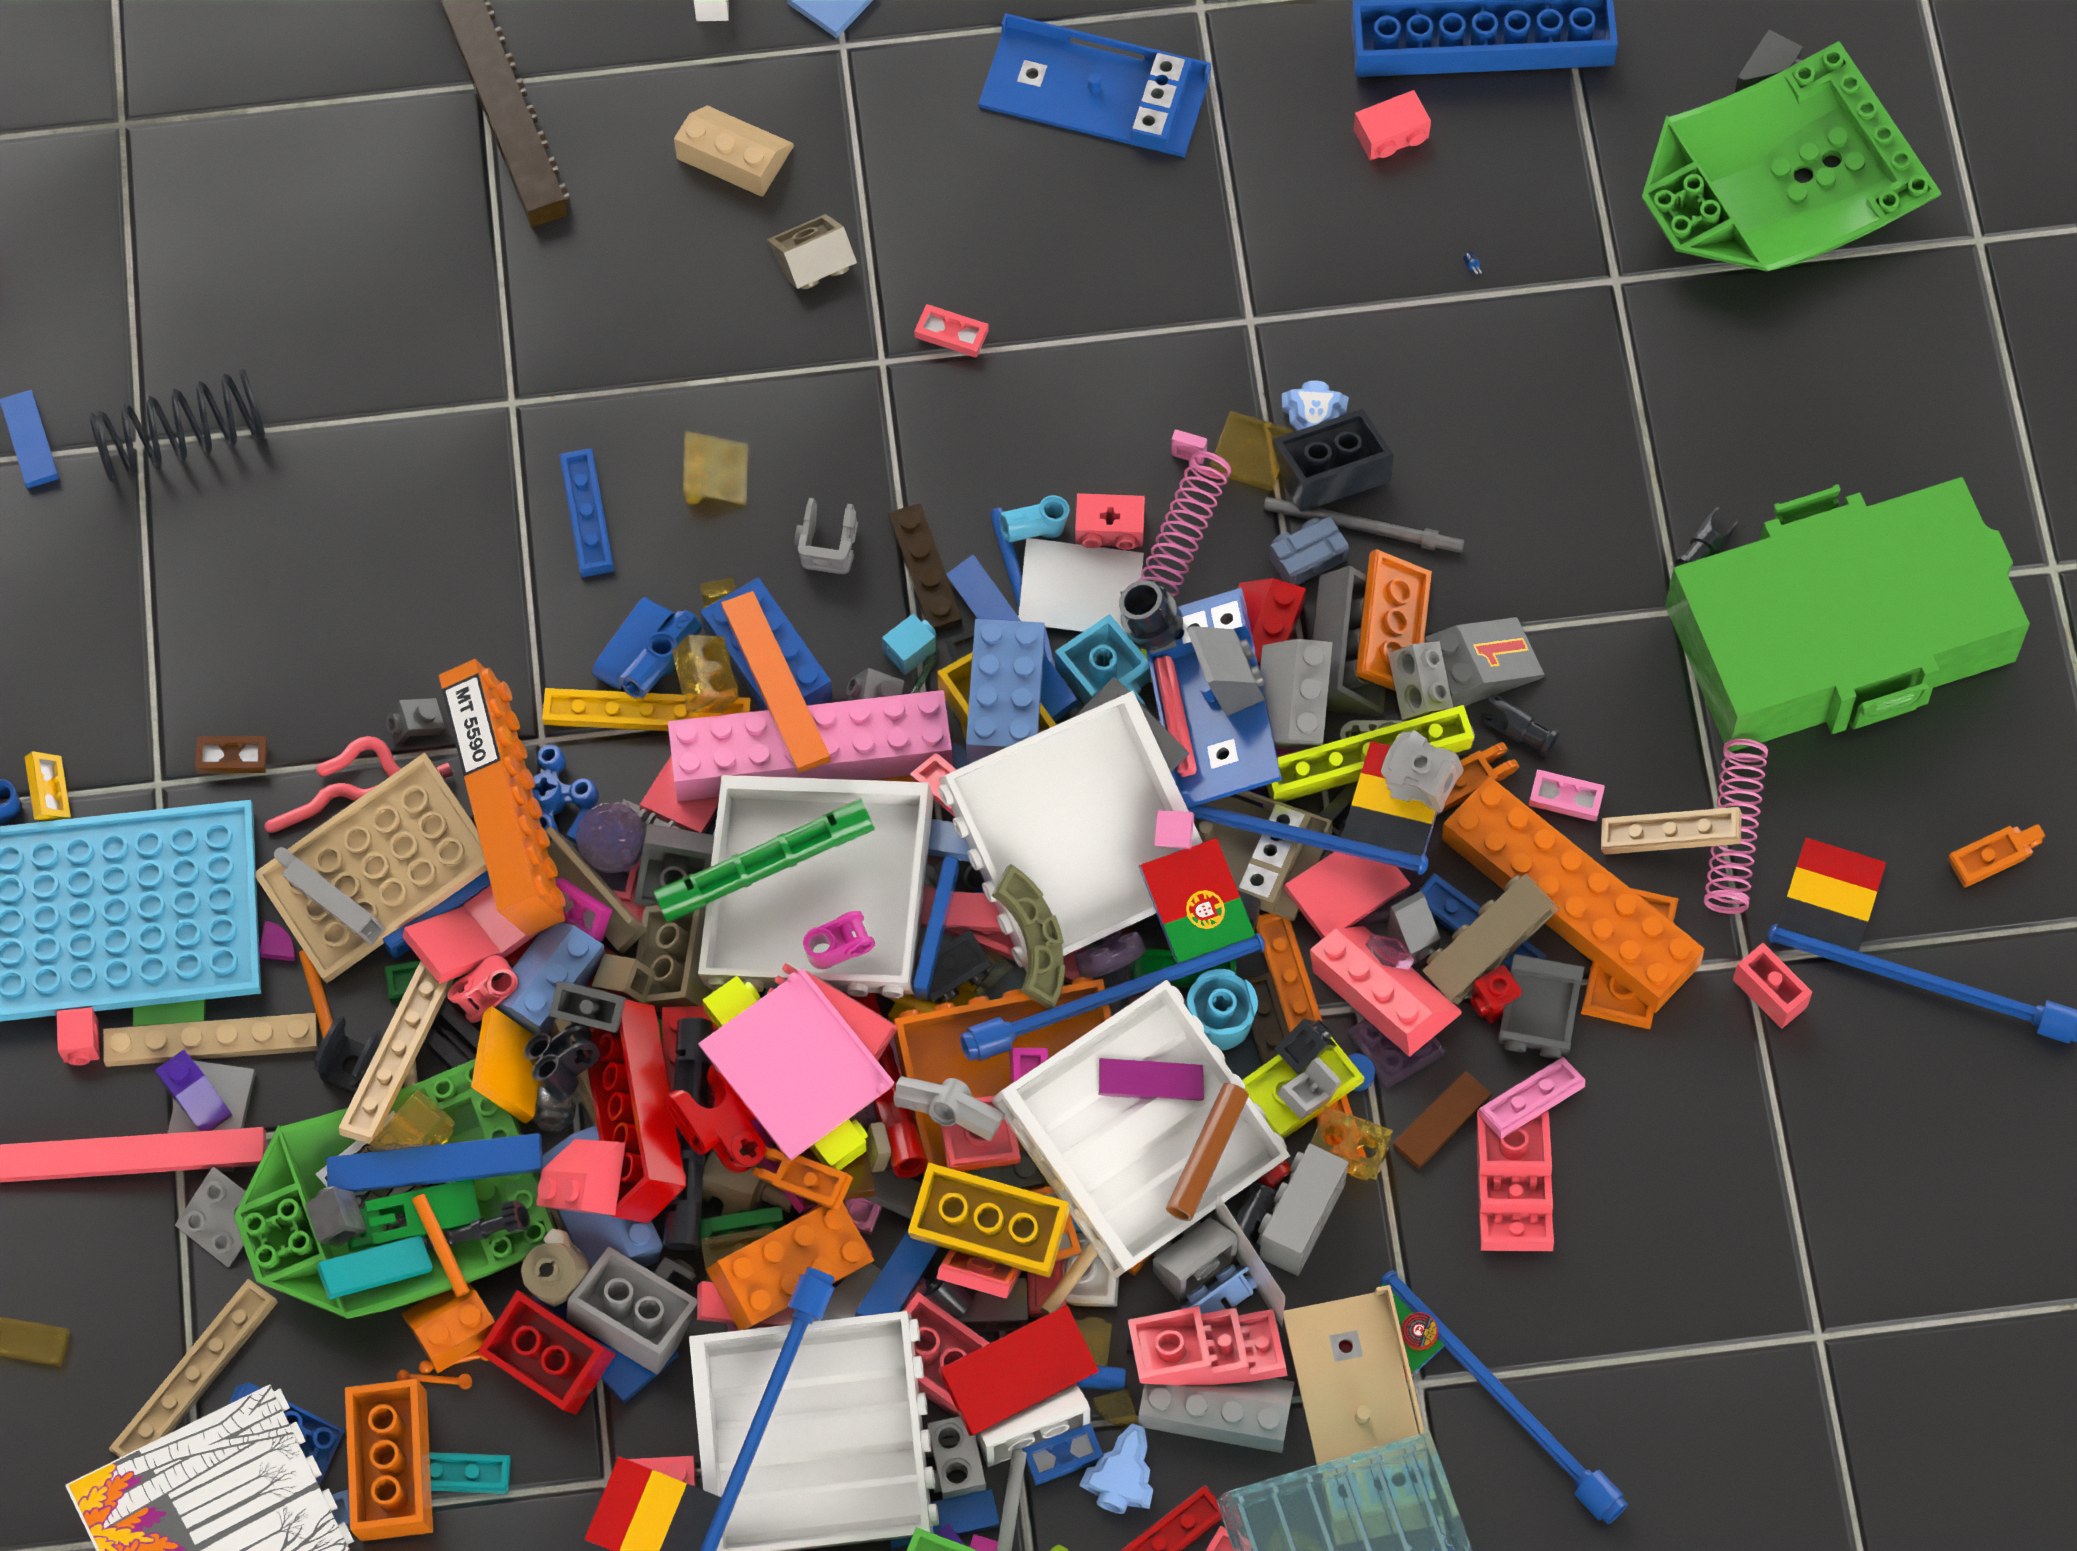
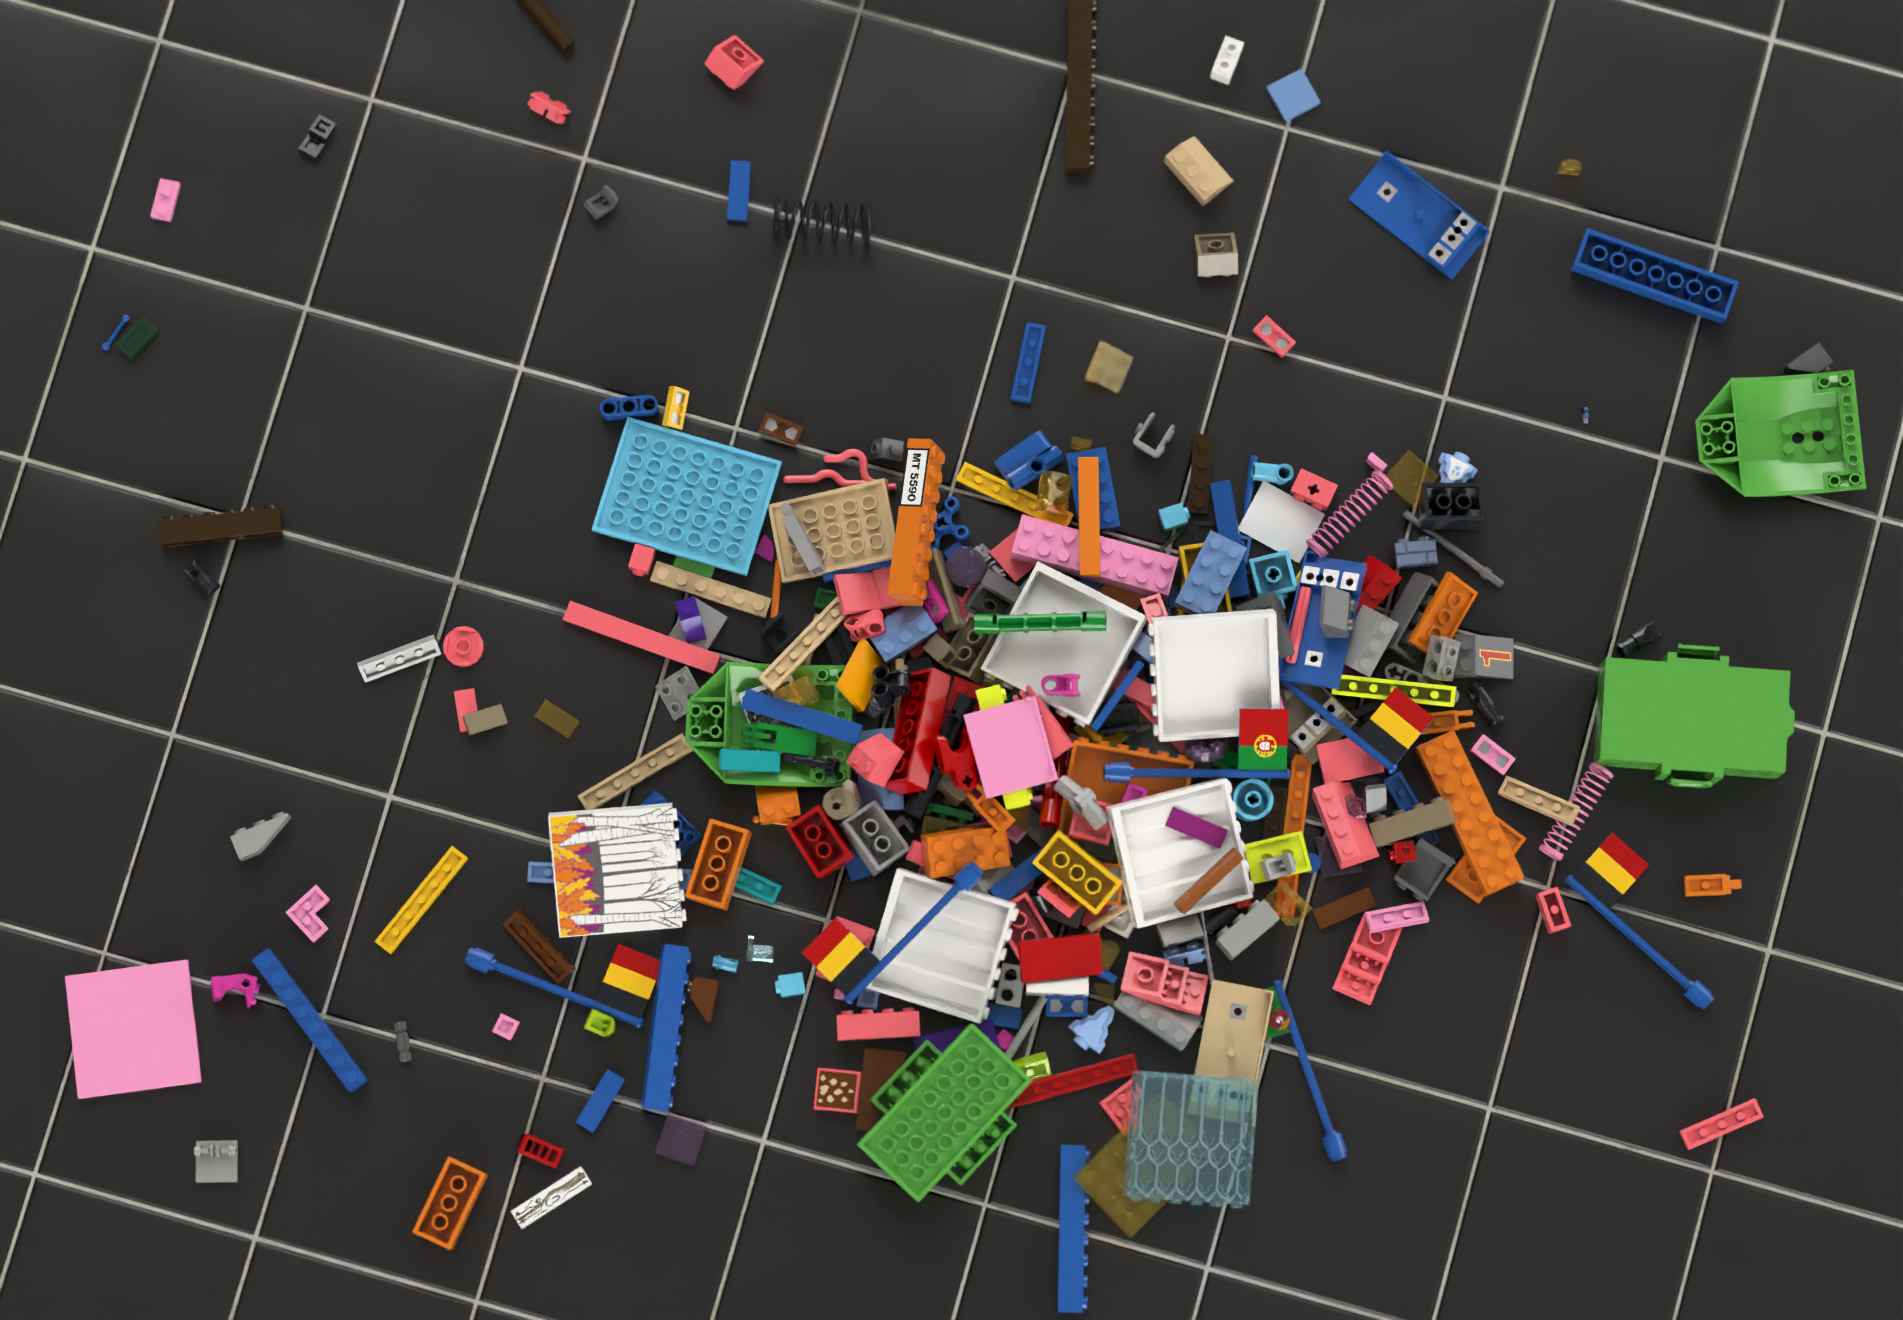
camera: 20 degrees right, 15 degrees up
(335, 1216) = (739, 724): flat silver brick -> none
(440, 1245) = (788, 762): orange bar -> none
(464, 1380) = (773, 835): orange hinge -> none
(587, 1006) = (915, 664): dark grey slope -> none
(873, 685) = (1142, 536): dark grey bracket -> none
(878, 1147) = (1036, 805): dark tan tile -> none
(1040, 932) = (1170, 725): olive tile -> none
(1149, 615) = (1312, 571): black piece -> none
(1174, 829) = (1266, 696): bright pink tile -> none
(1305, 1044) = (1287, 840): black bracket -> none
(1392, 125) = (1577, 311): coral brick -> none
(1420, 771) = (1412, 720): light grey piece -> none

